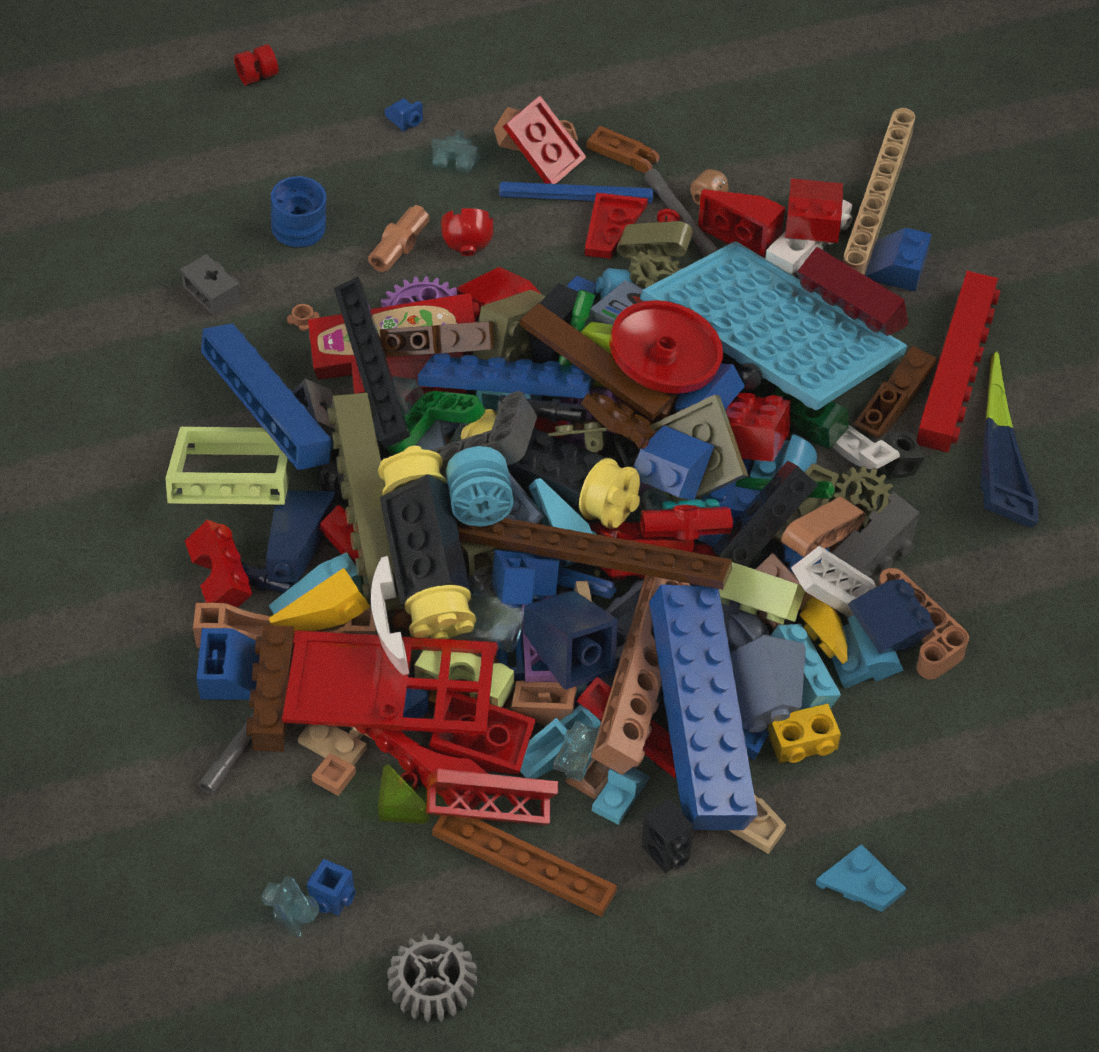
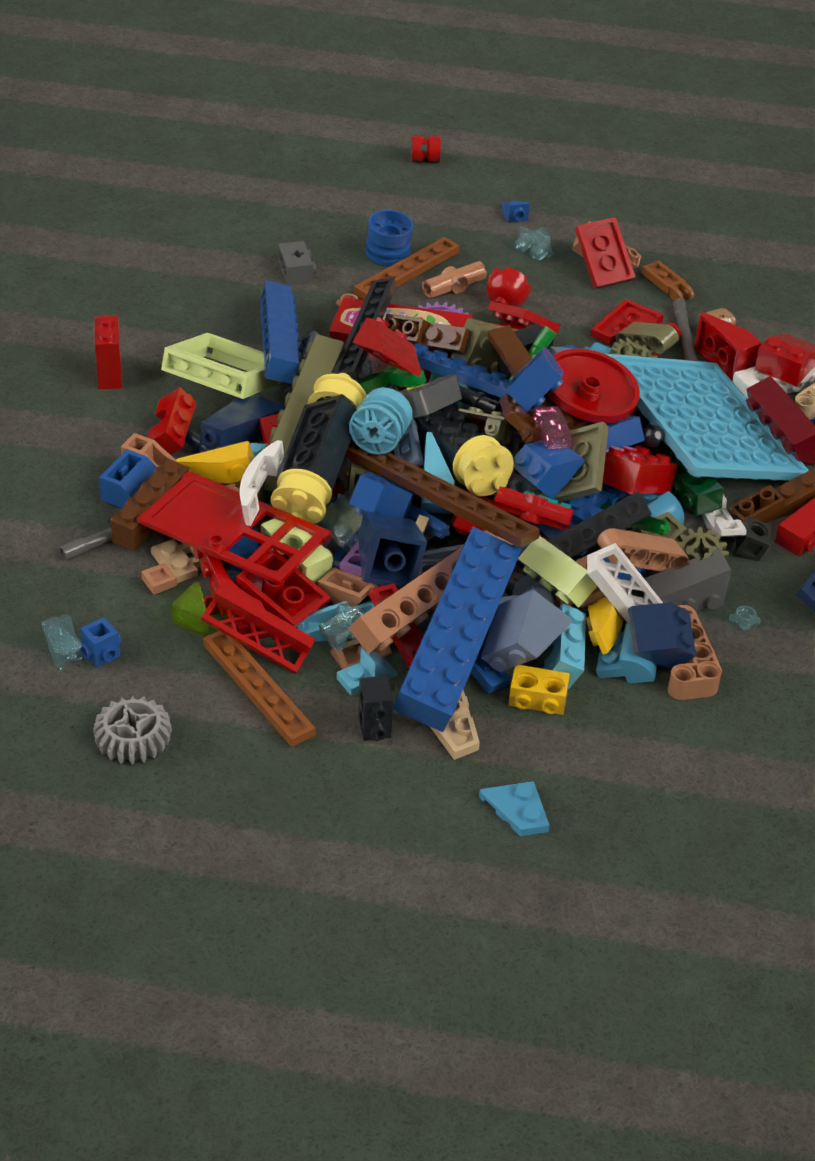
camera: 25 degrees right, 10 degrees down
(90, 503) = (108, 352): none -> red brick
(337, 244) = (412, 265): none -> dark orange plate
(428, 384) = (388, 345): none -> red slope
(499, 264) = (521, 316): none -> red wing
(567, 191) = (605, 293): blue axle -> none
(615, 368) = (535, 380): none -> blue slope
(663, 420) = (553, 427): none -> clear pink slope
(946, 547) = (745, 618): none -> clear light blue plate

